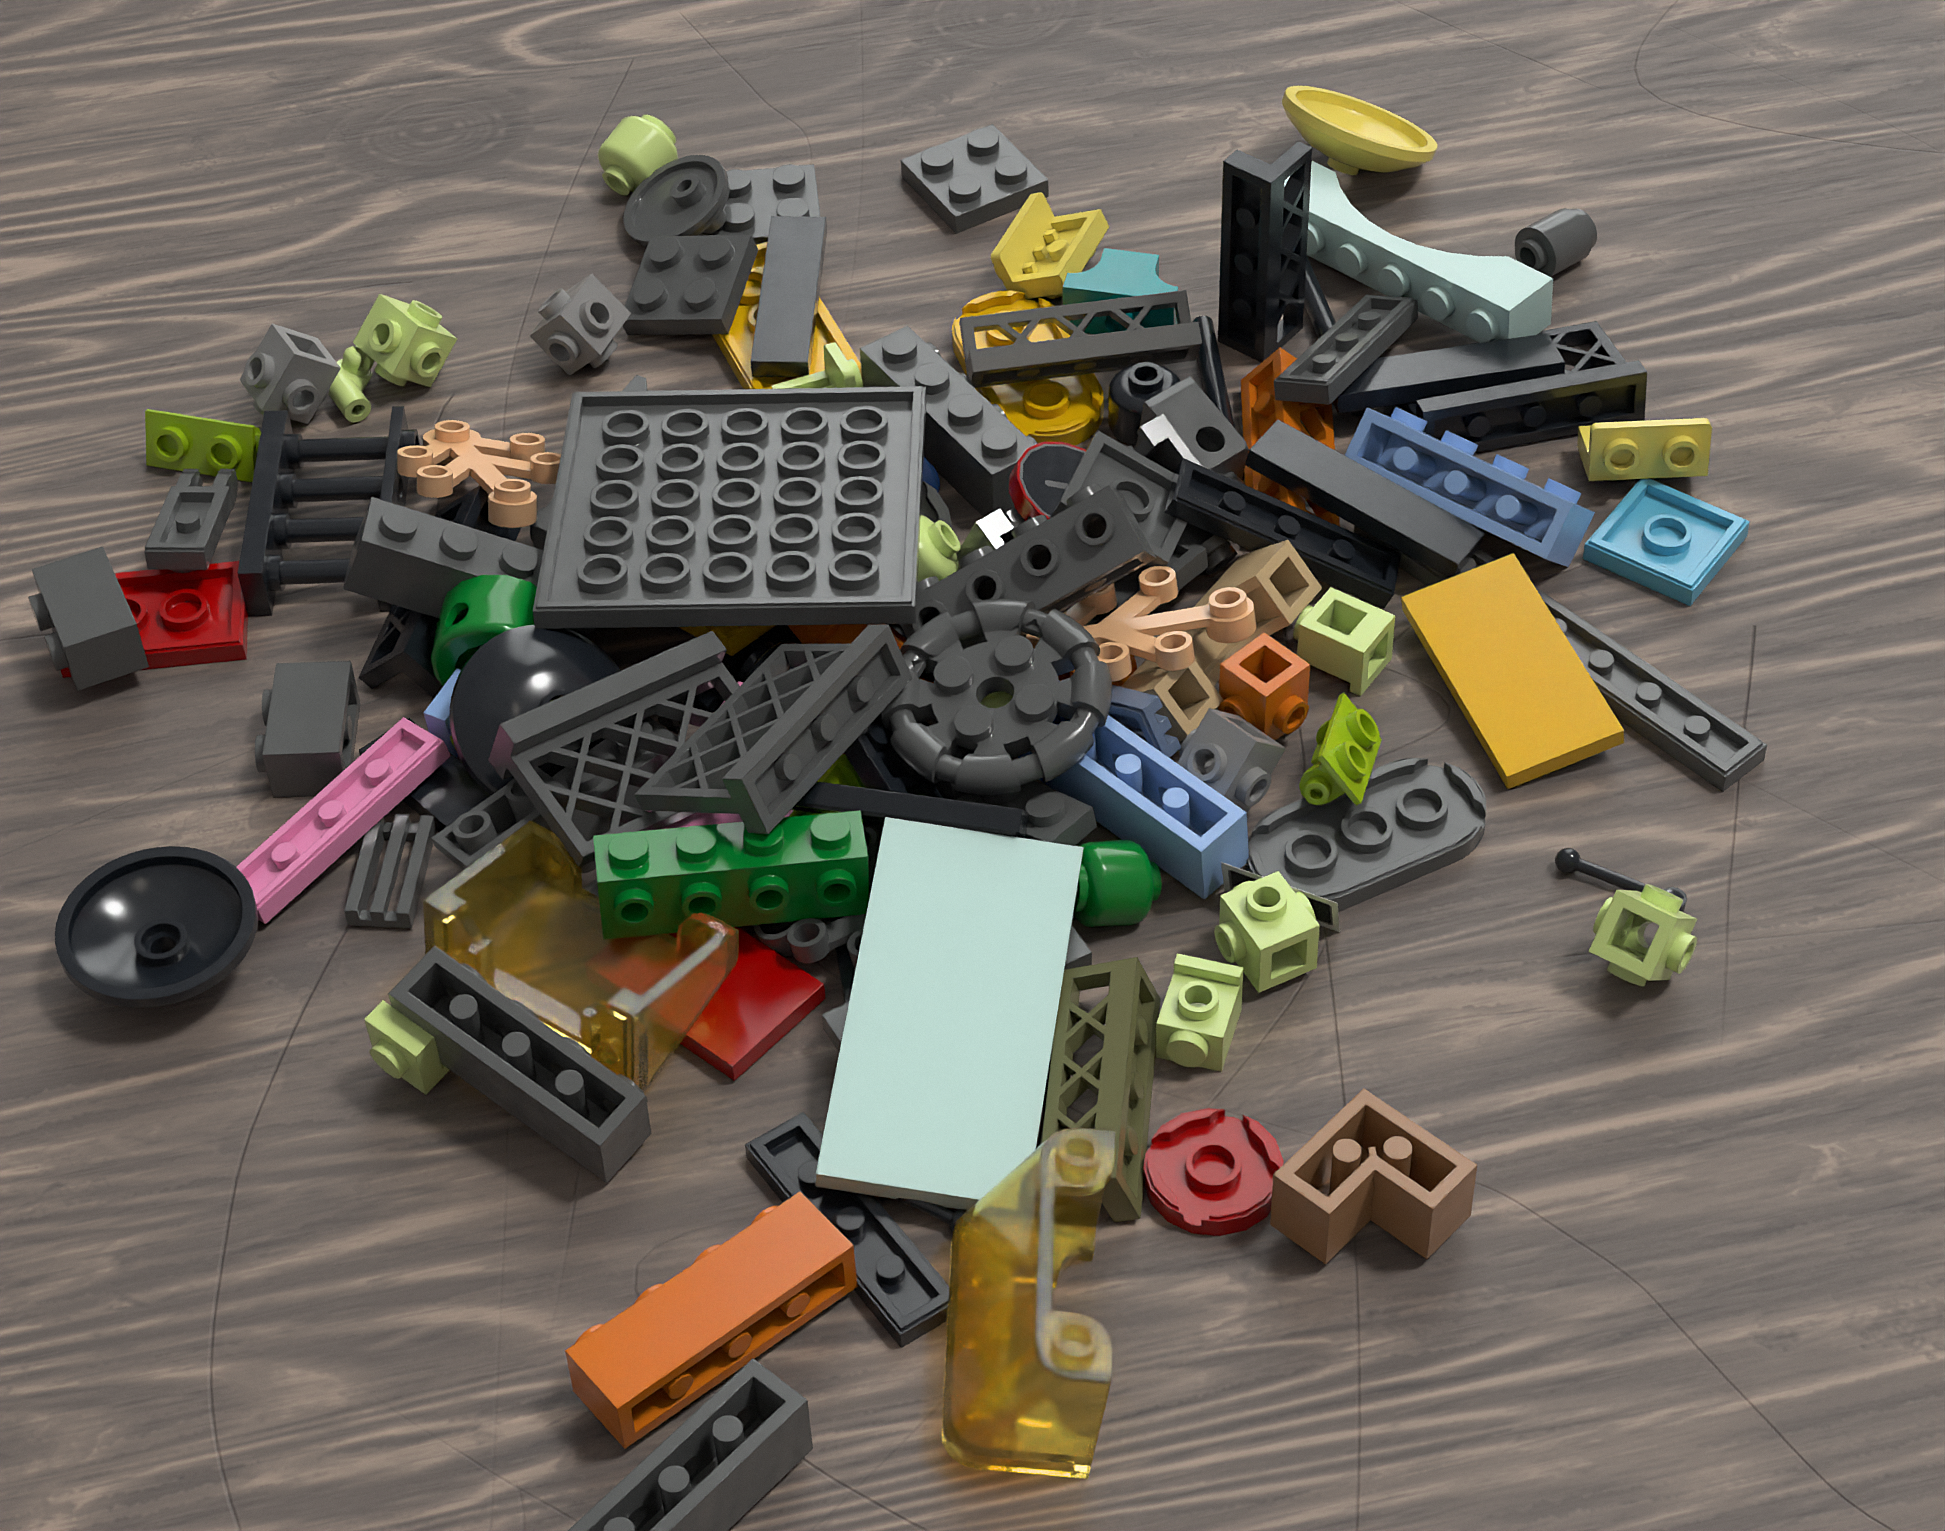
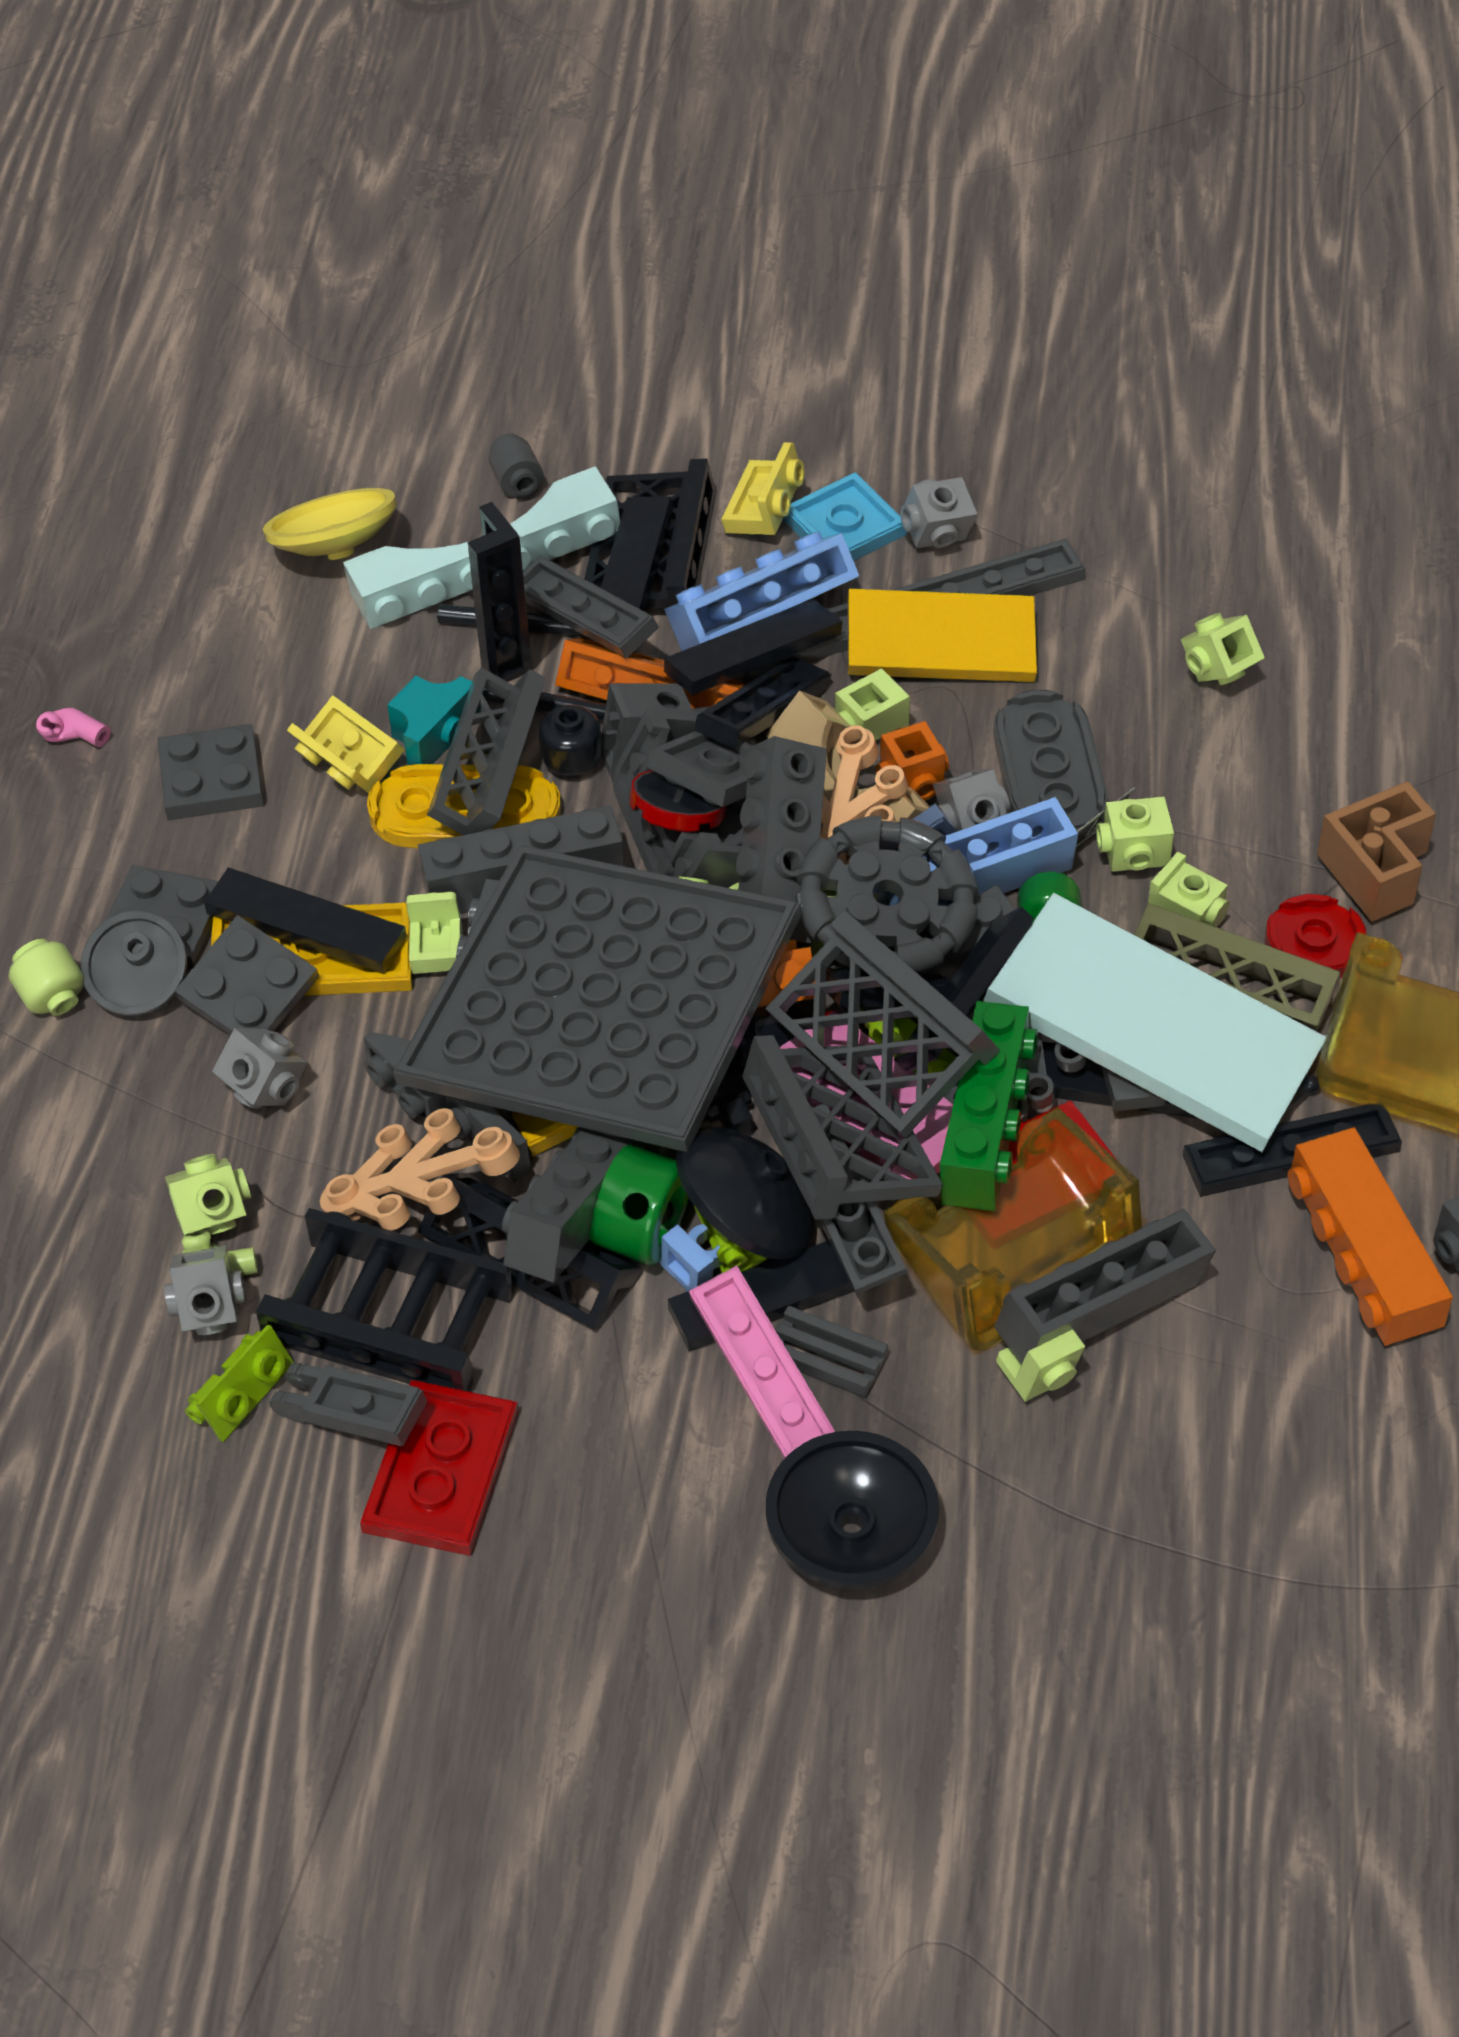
camera: 70 degrees left, 5 degrees up
(88, 619) = (454, 1496): dark grey brick -> none
(309, 726) = (652, 1367): dark grey brick -> none
(981, 65) = (72, 724): none -> bright pink arm
(1342, 755) = (1004, 751): lime hinge -> none
(1569, 861) = (1171, 636): black hinge -> none
(1710, 602) = (938, 512): none -> light grey brick

